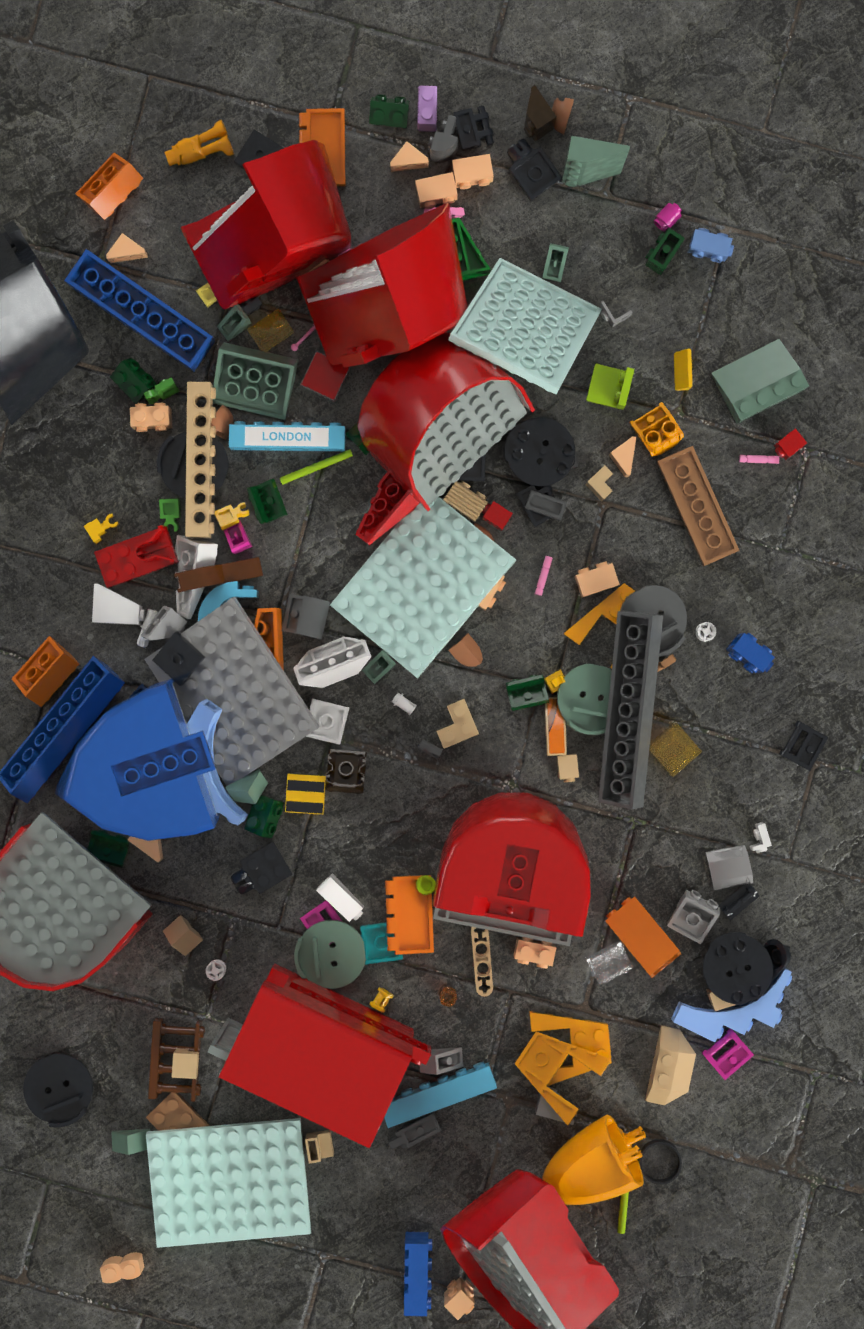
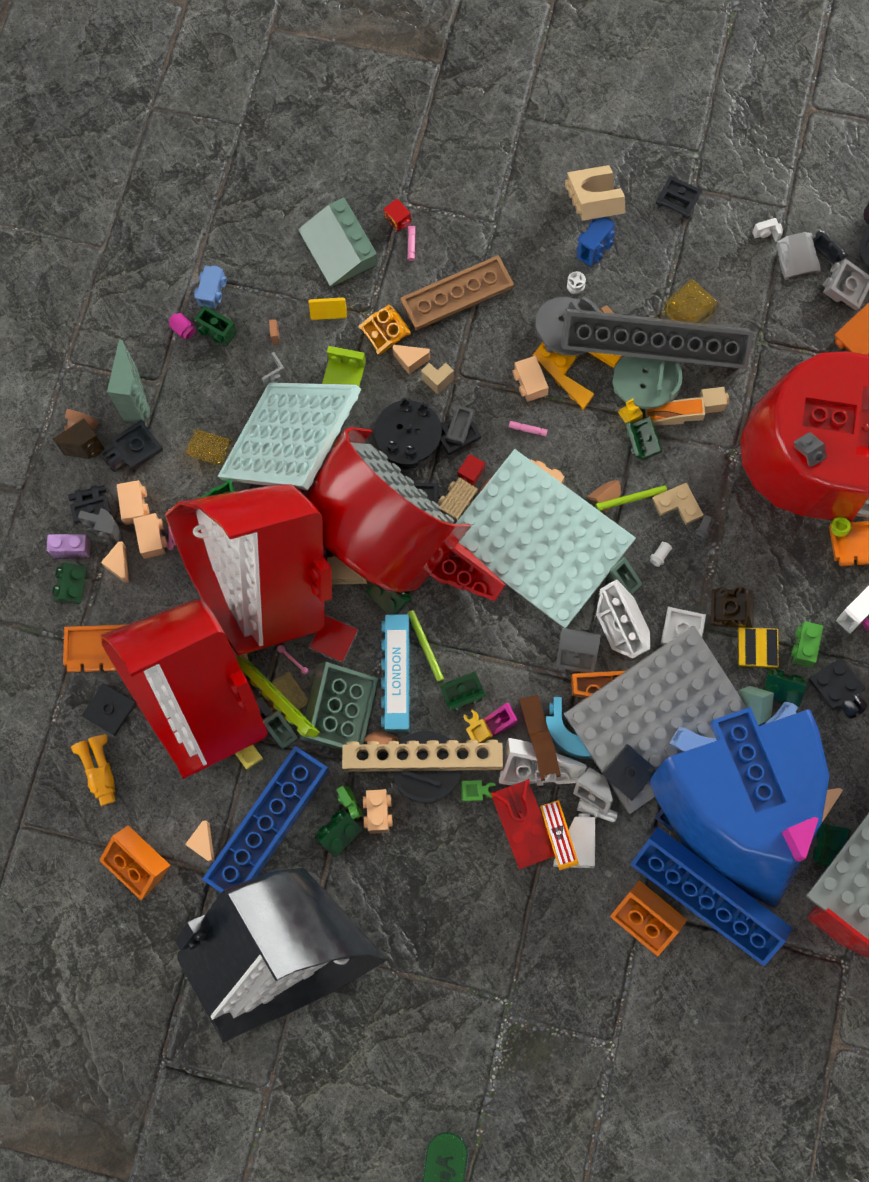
camera: 80 degrees left, 15 degrees down
(84, 805) = (800, 837): none -> dark pink slope
(96, 529) = (494, 866): yellow piece -> none
(119, 588) = (559, 835): none -> slope
(258, 320) = (281, 704): none -> lime plate
(305, 841) = (807, 644): none -> bright green brick
(462, 676) = (630, 498): none -> lime bar
(479, 849) = (811, 448): none -> dark grey bracket
(532, 247) = (208, 447): none -> clear yellow plate
(555, 262) = (223, 424): sand green slope -> none
(658, 313) = (274, 331): none -> nougat tile
(784, 652) = (586, 194): none -> tan arch

